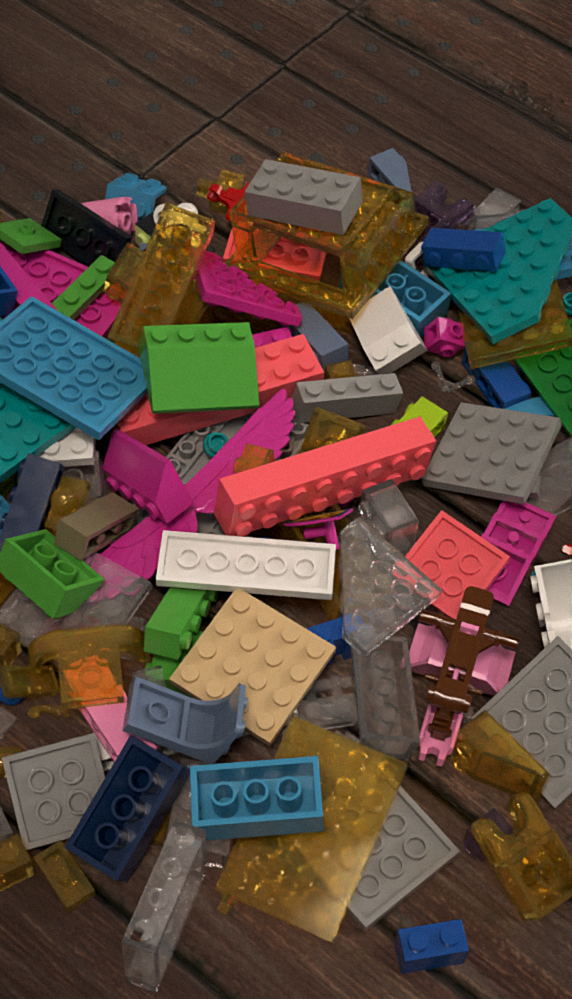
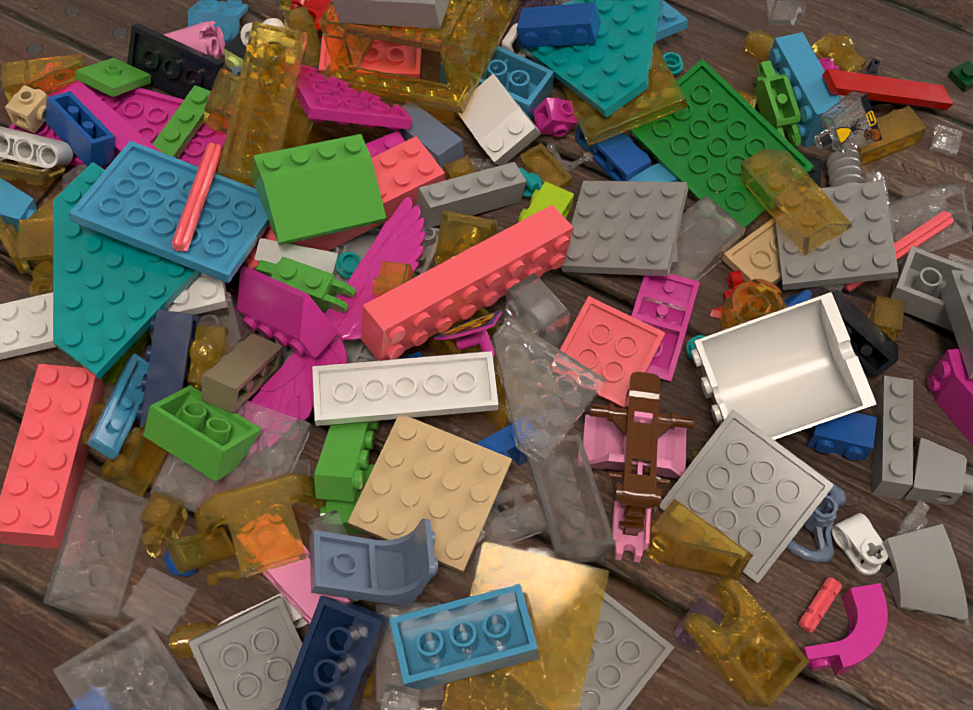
camera: 10 degrees left, 5 degrees up
(83, 357) = (196, 198): none -> coral axle
(167, 428) = (272, 252): none -> white sticker
(183, 455) = (316, 282): none -> bright green hinge
(214, 209) = (300, 20): none -> clear yellow slope
(410, 395) = (533, 182): none -> teal plate
(426, 383) = (543, 163): none -> clear yellow plate

